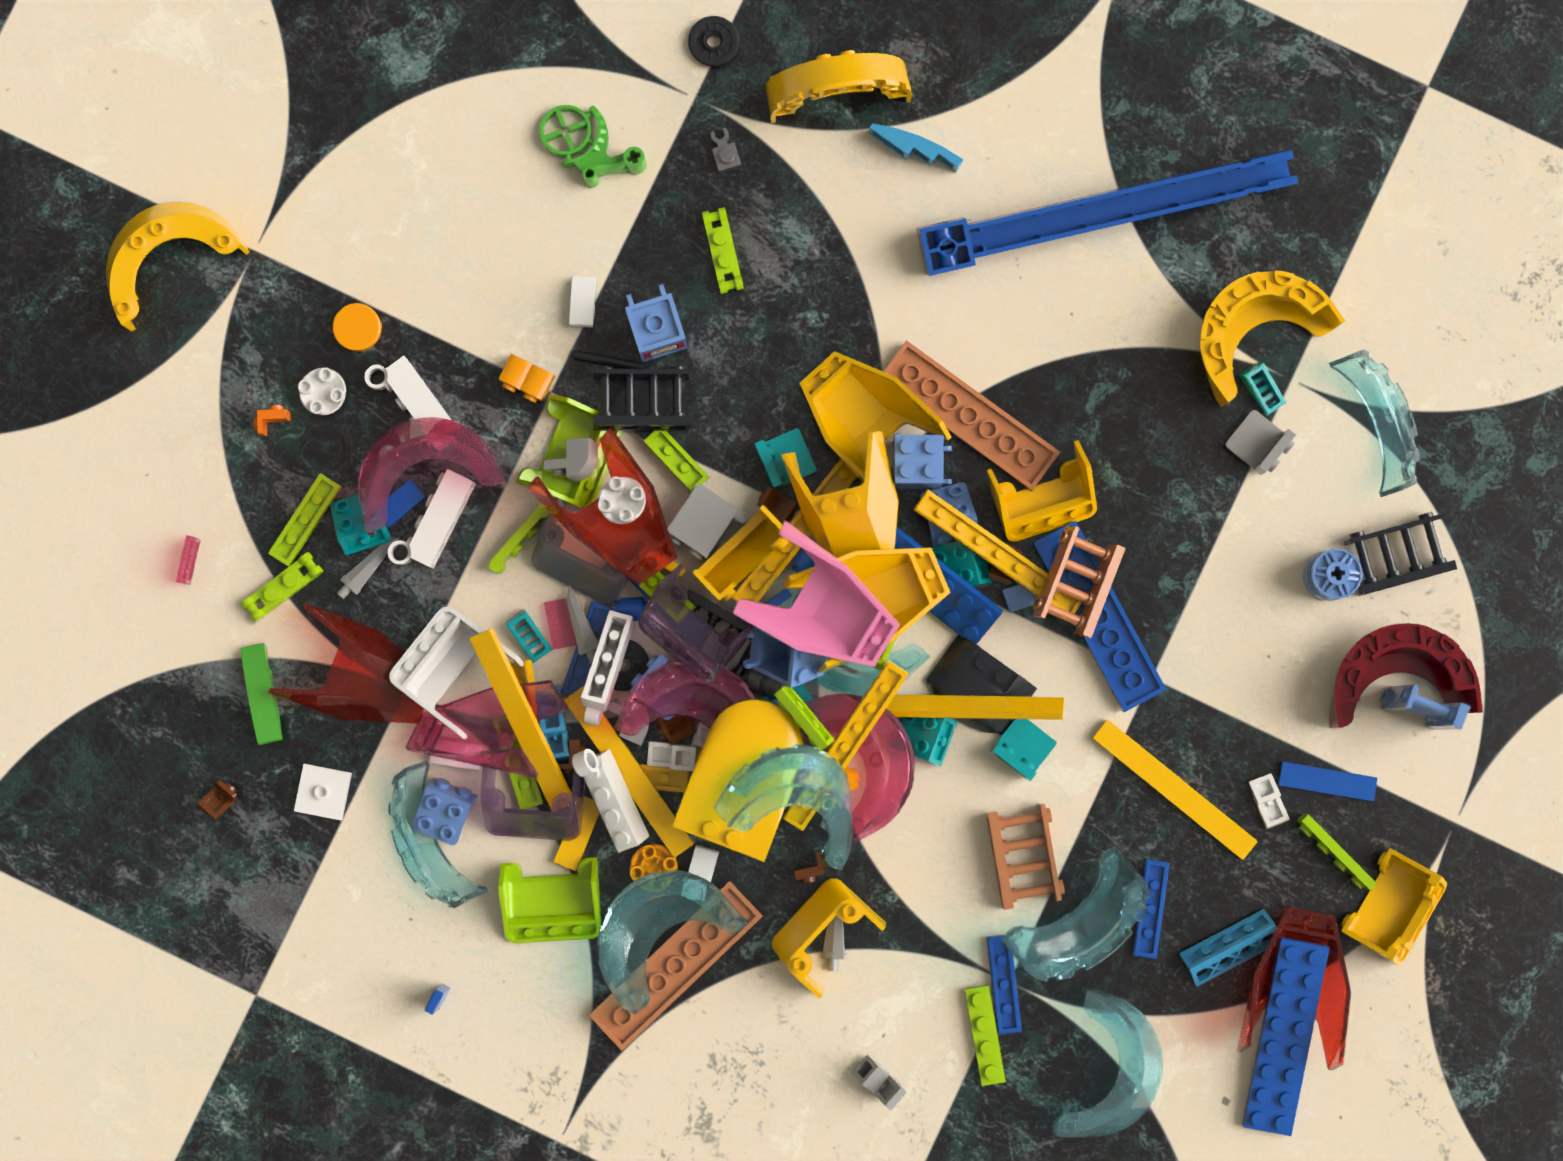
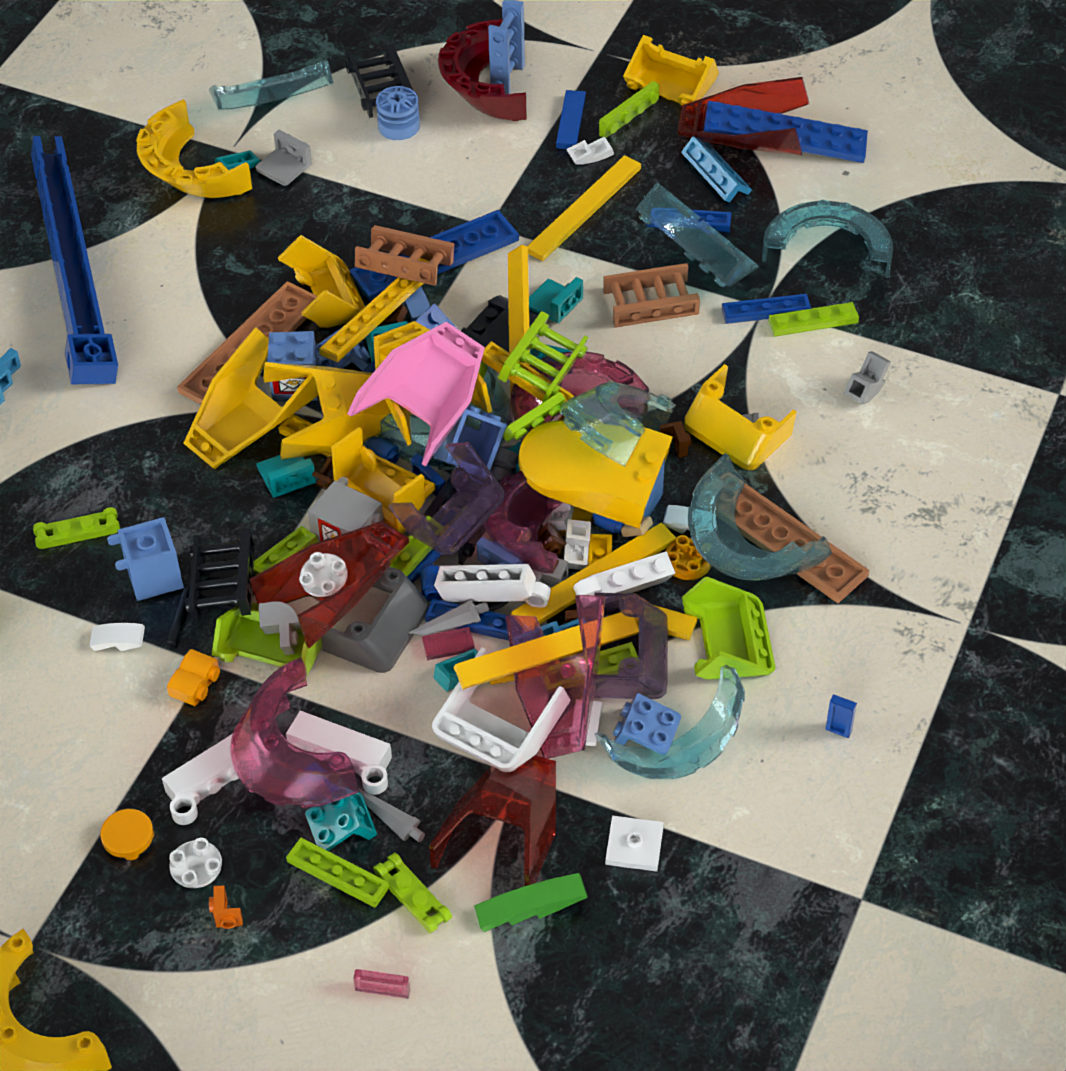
camera: 90 degrees left, 35 degrees down
(218, 800) = (649, 938): reddish brown bracket -> none
(513, 545) = (360, 677): lime plate -> none
(883, 706) = (530, 341): none -> lime fence

